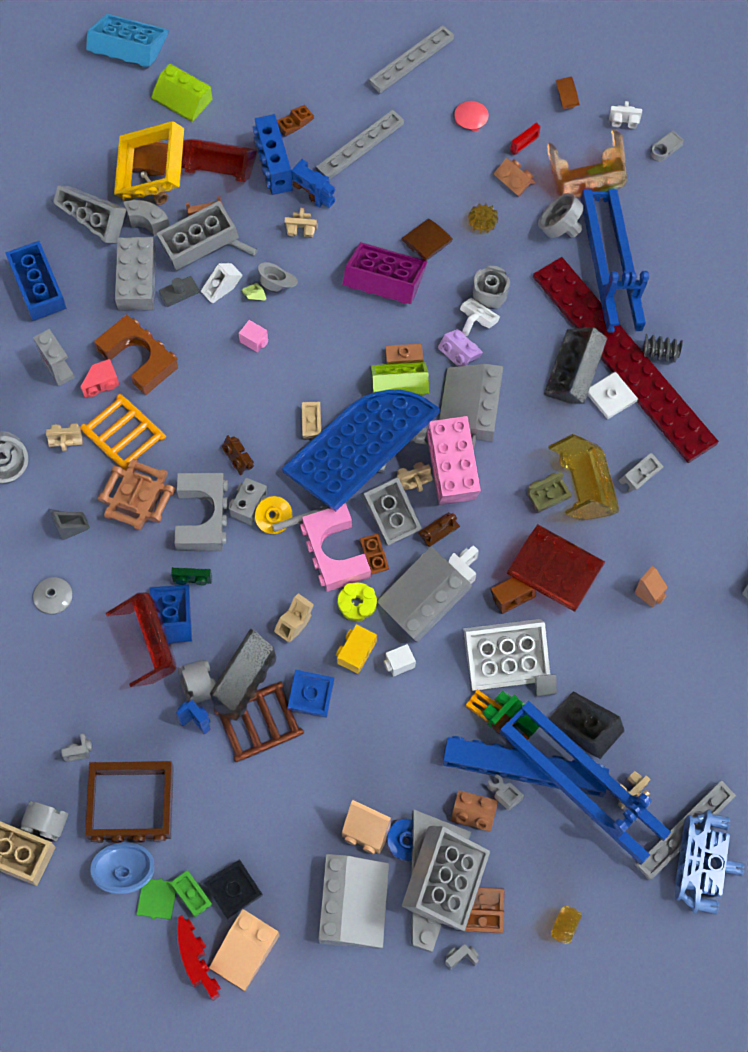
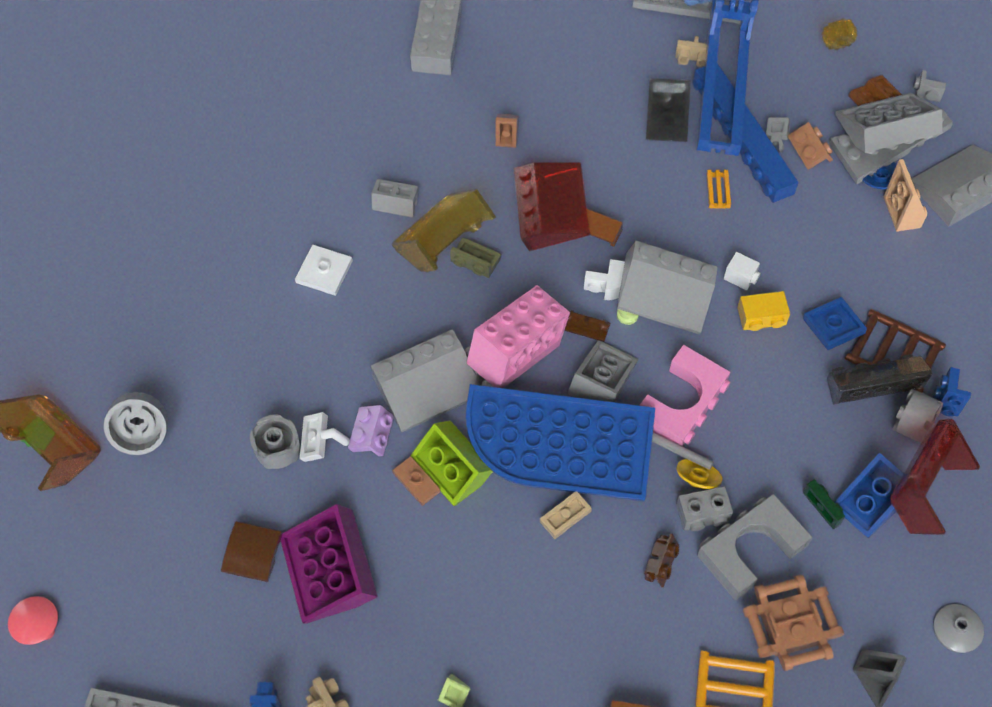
camera: 125 degrees left, 5 degrees down
(253, 336) = (513, 645): bright pink brick -> none
(275, 278) = (421, 671): light grey piece -> none
(294, 619) = (784, 382): tan brick -> none
(363, 610) = (721, 336): neon yellow plate -> none
(374, 553) = (657, 364): dark orange slope -> none
(415, 478) = (541, 374): tan hips -> none
(483, 218) = (187, 502): clear yellow gear -> none
(506, 654) = (657, 200): white slope -> none
(509, 709) = (714, 165): green hips -> none
(513, 177) = (101, 514): nougat bracket -> none
(525, 138) = (37, 534): red tile -> none
(545, 684) = (658, 158): light grey slope -> none
(576, 365) = (317, 310): clear smoke slope -> none
(608, 284) = (193, 301): blue piece -> none
(625, 358) = (266, 292): dark red plate -> none
(662, 348) = (239, 251): dark grey piece -> none

